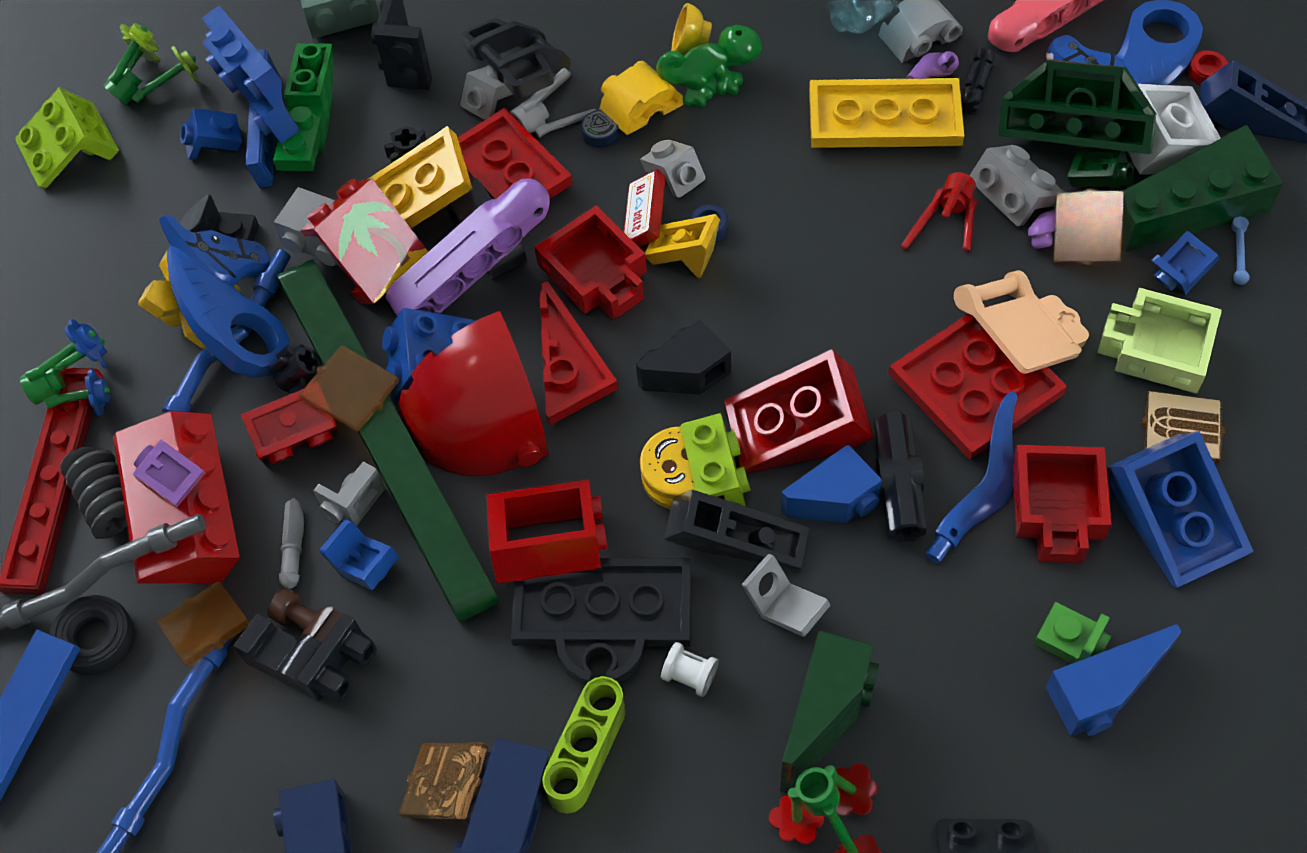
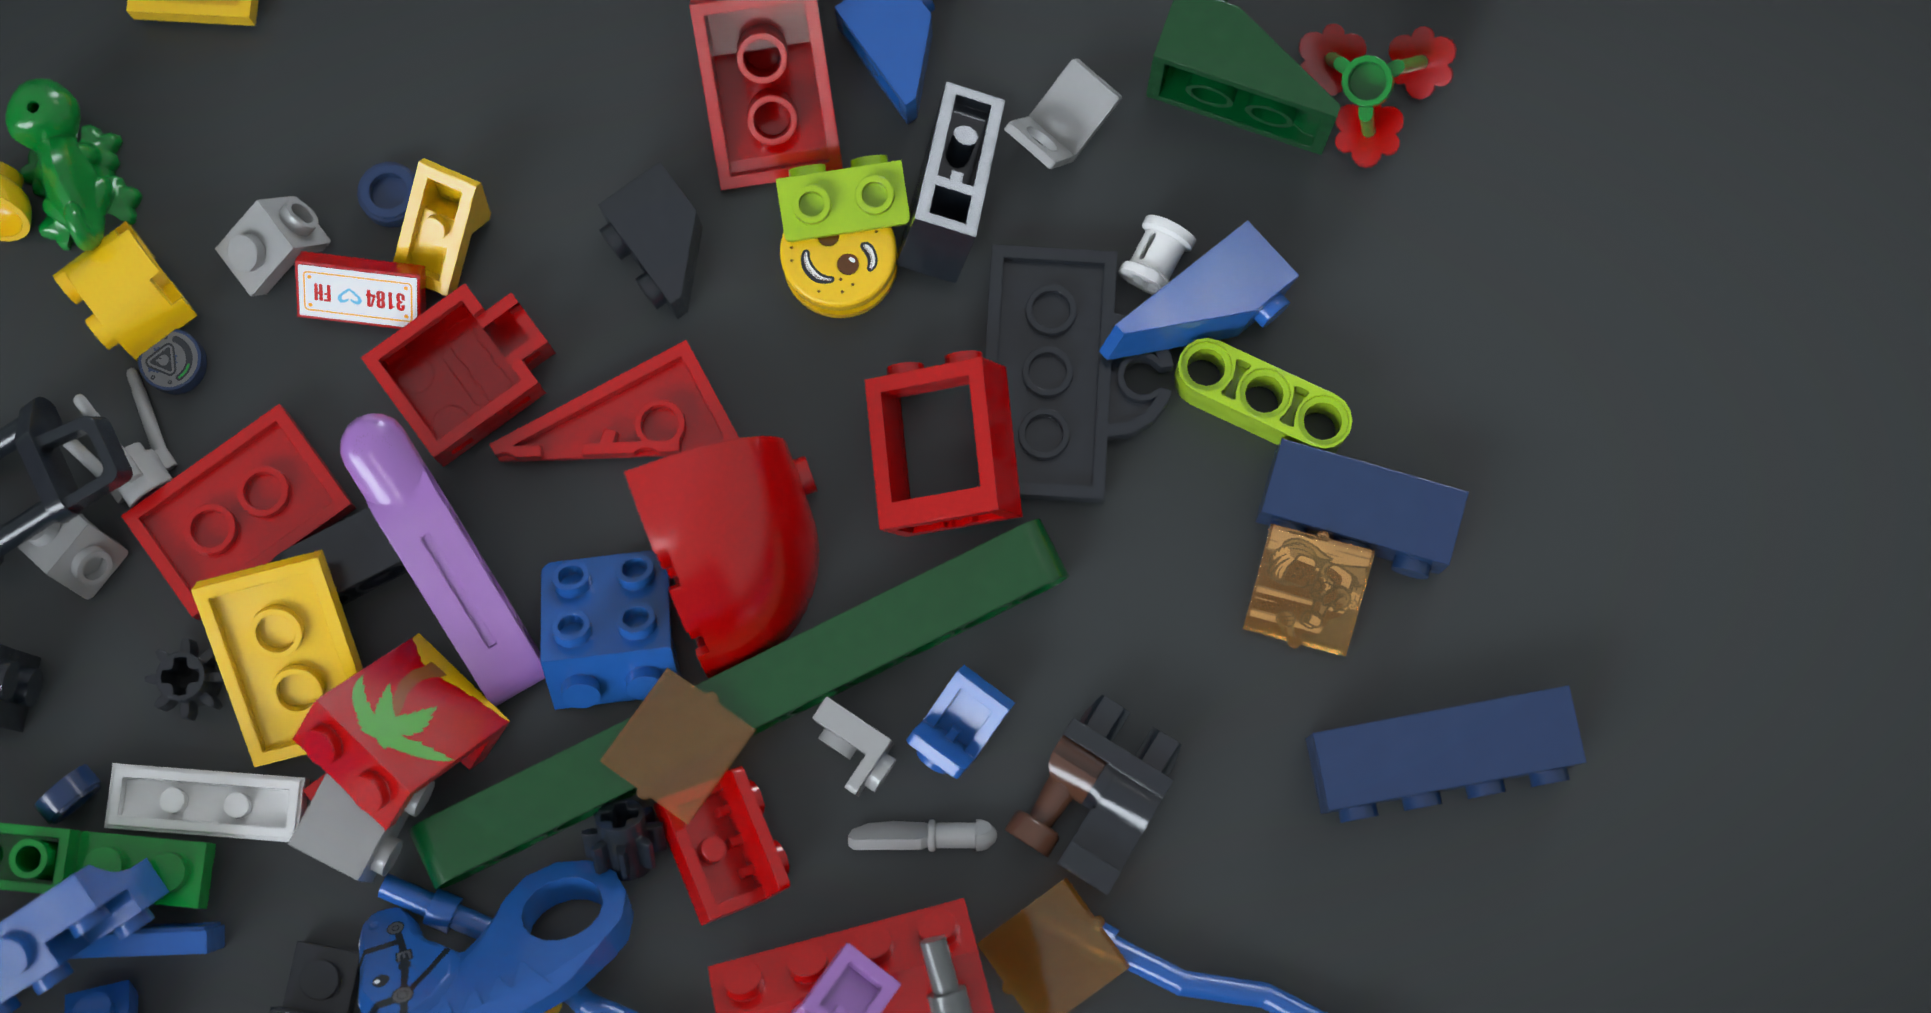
camera: 90 degrees left, 20 degrees up
(340, 156) = (205, 802): none -> white tile
(346, 102) = (68, 795): none -> dark blue tile
(656, 701) = (1212, 298): none -> slope

